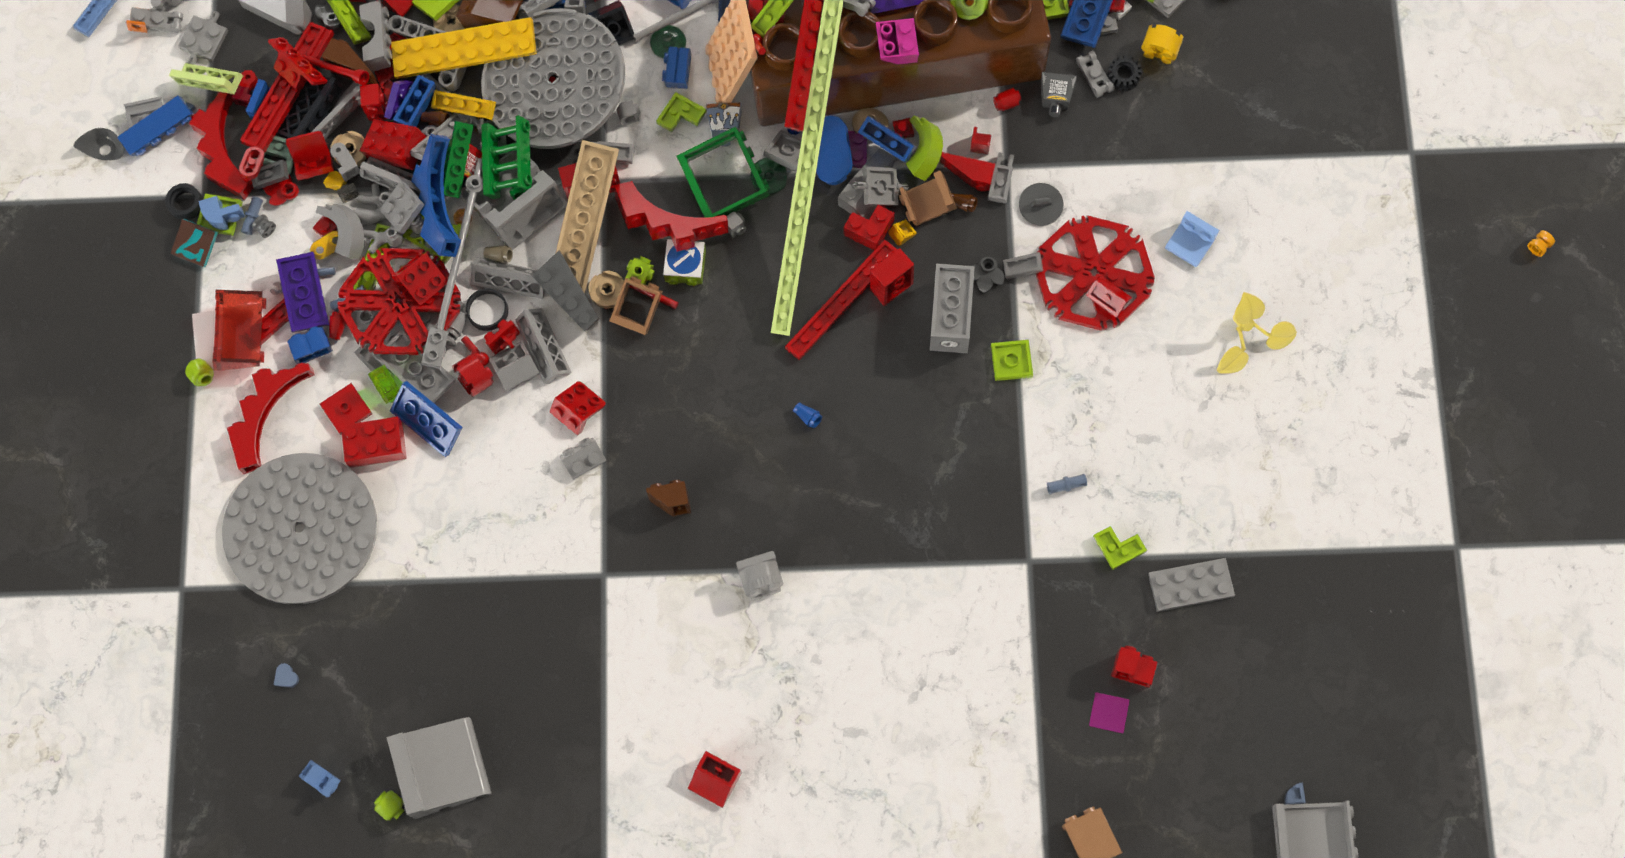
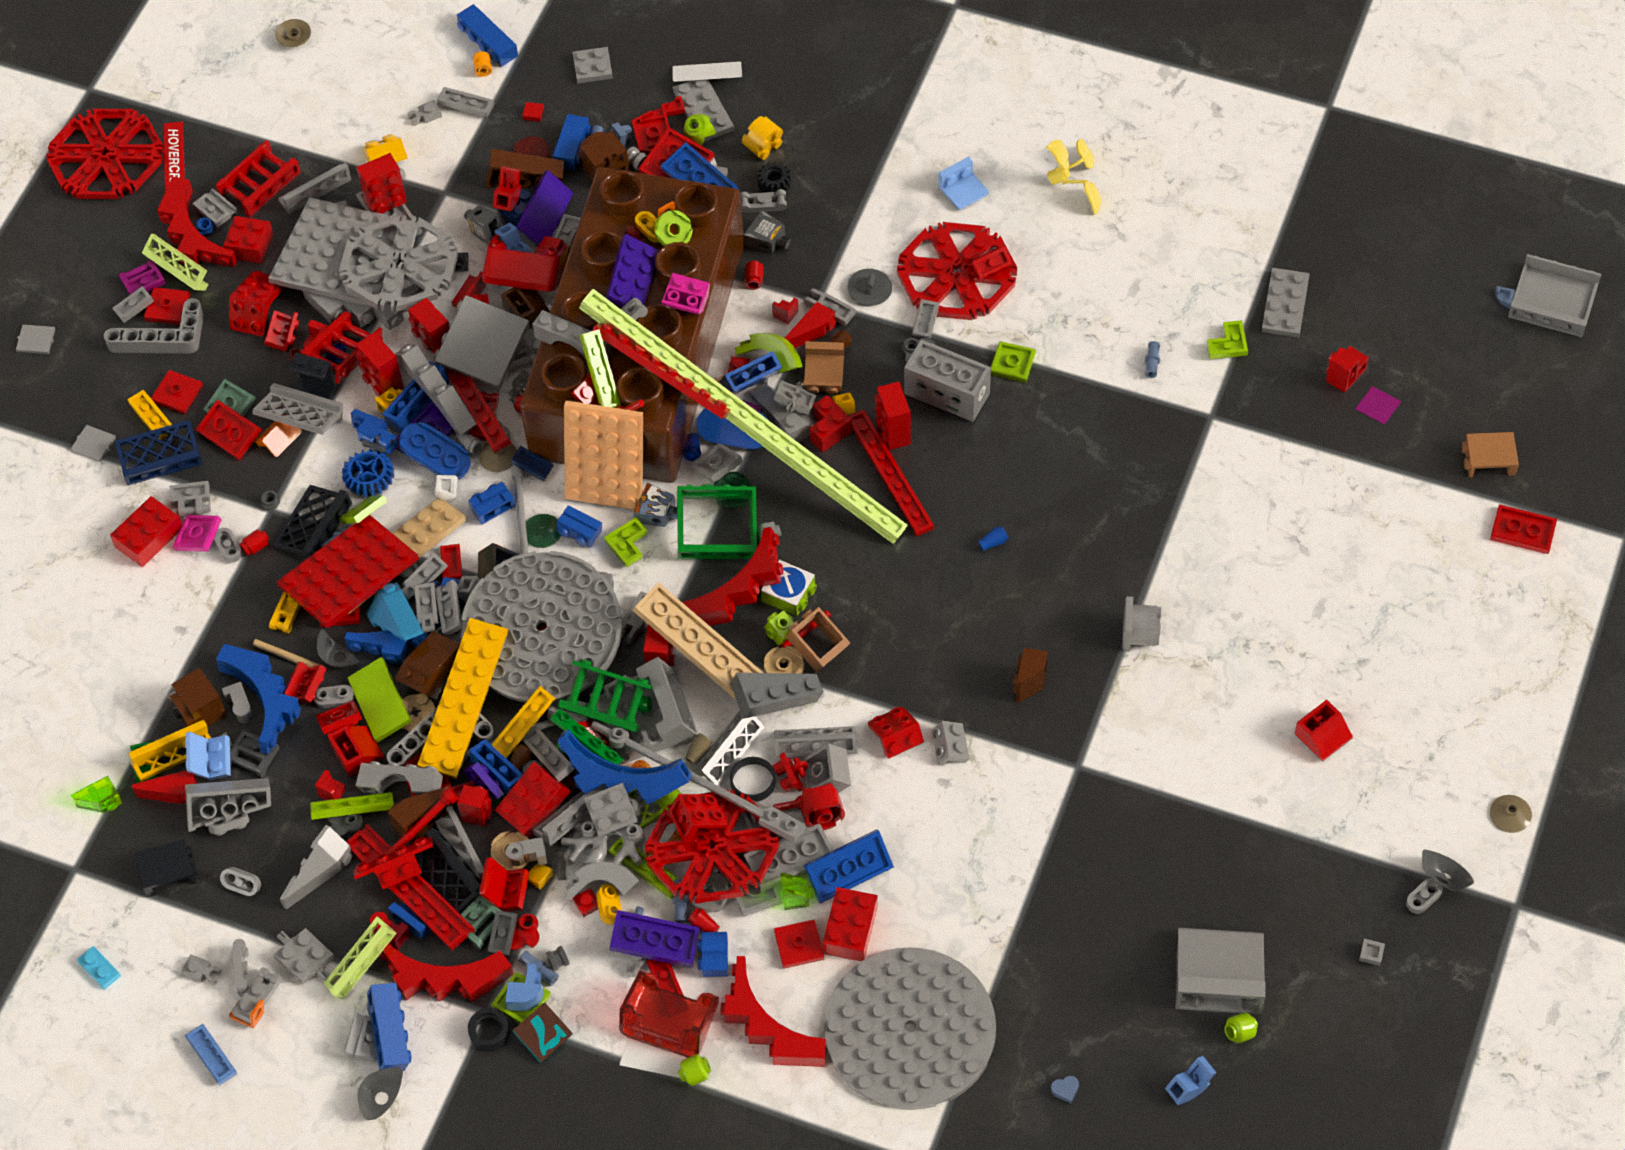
camera: 70 degrees left, 15 degrees down
(251, 165) = (485, 941): red plate -> none

